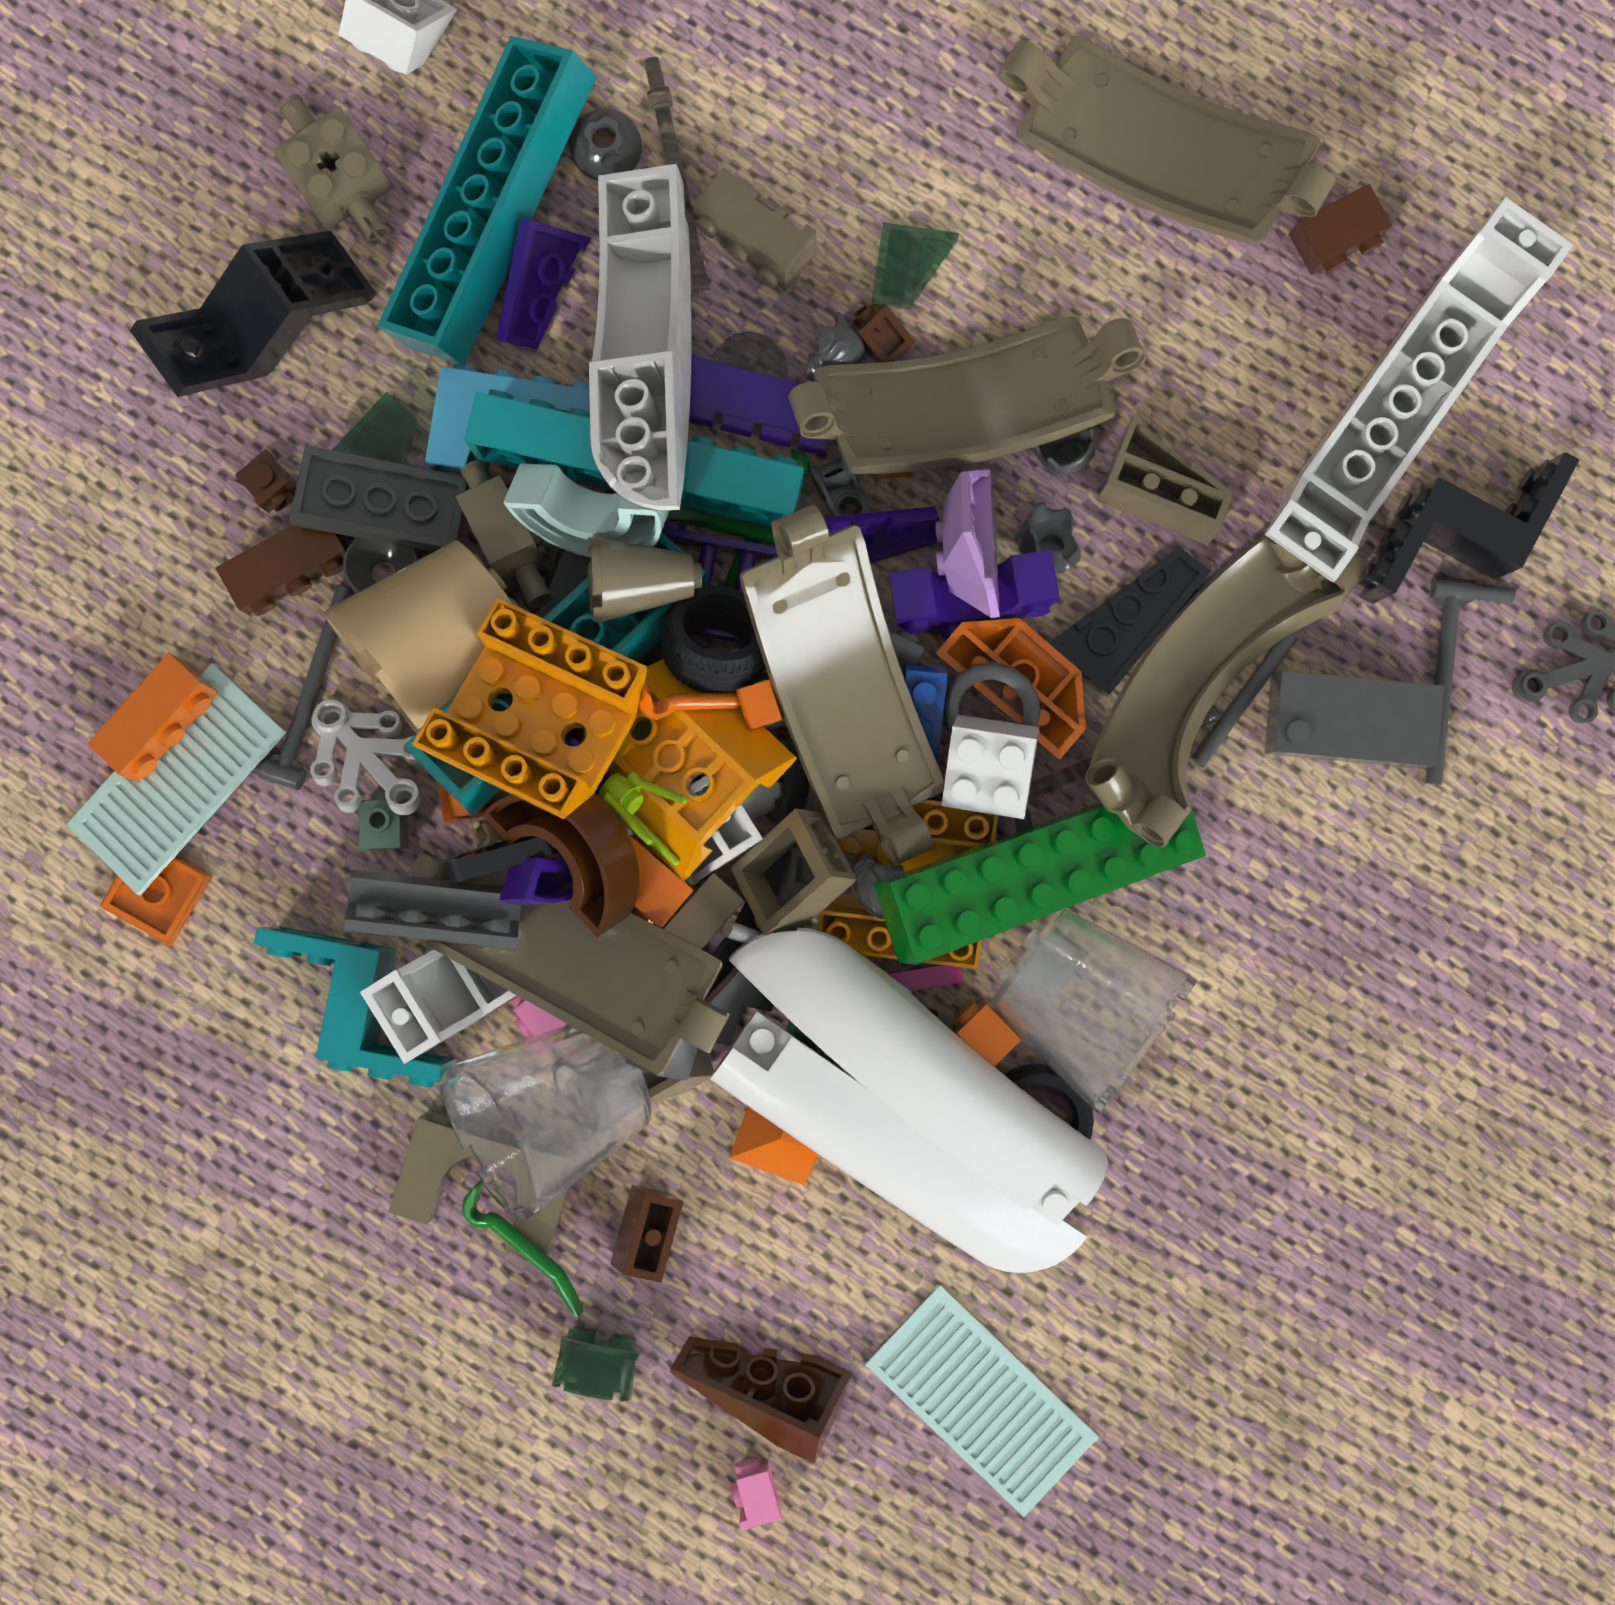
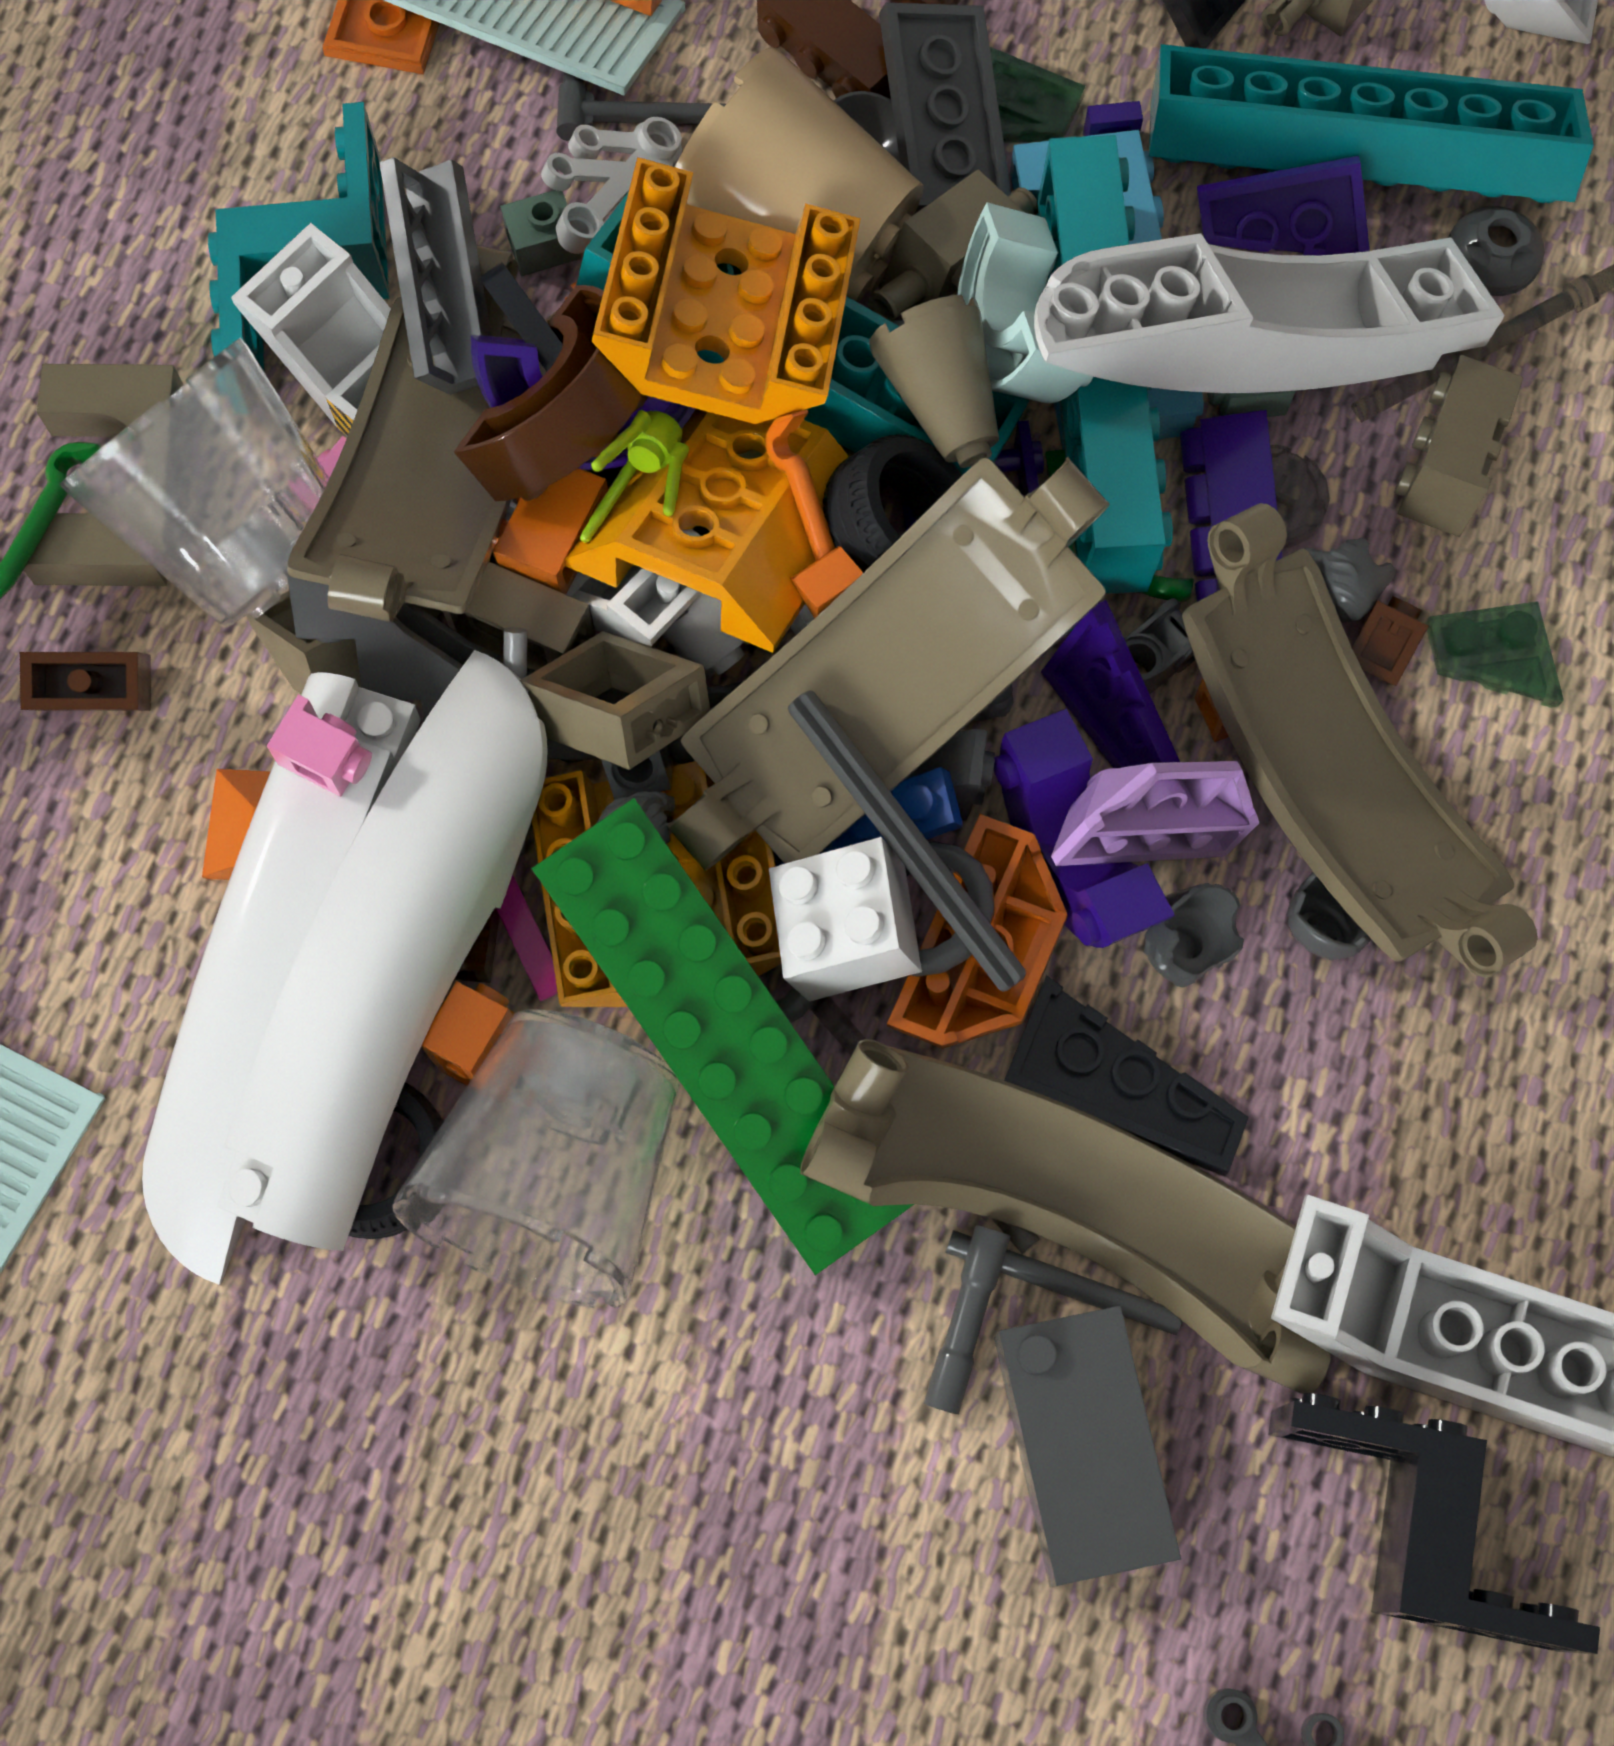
camera: 75 degrees right, 15 degrees down
(424, 382) = (1113, 118): none -> dark purple tile
(785, 1083) = (319, 748): none -> bright pink brick
(955, 710) = (907, 841): none -> dark grey axle
(1164, 487) = (1323, 1064): dark tan wedge -> none
(1272, 781) = (956, 1358): none -> dark grey piece
(1453, 594) = (1323, 1548): dark grey bar -> none

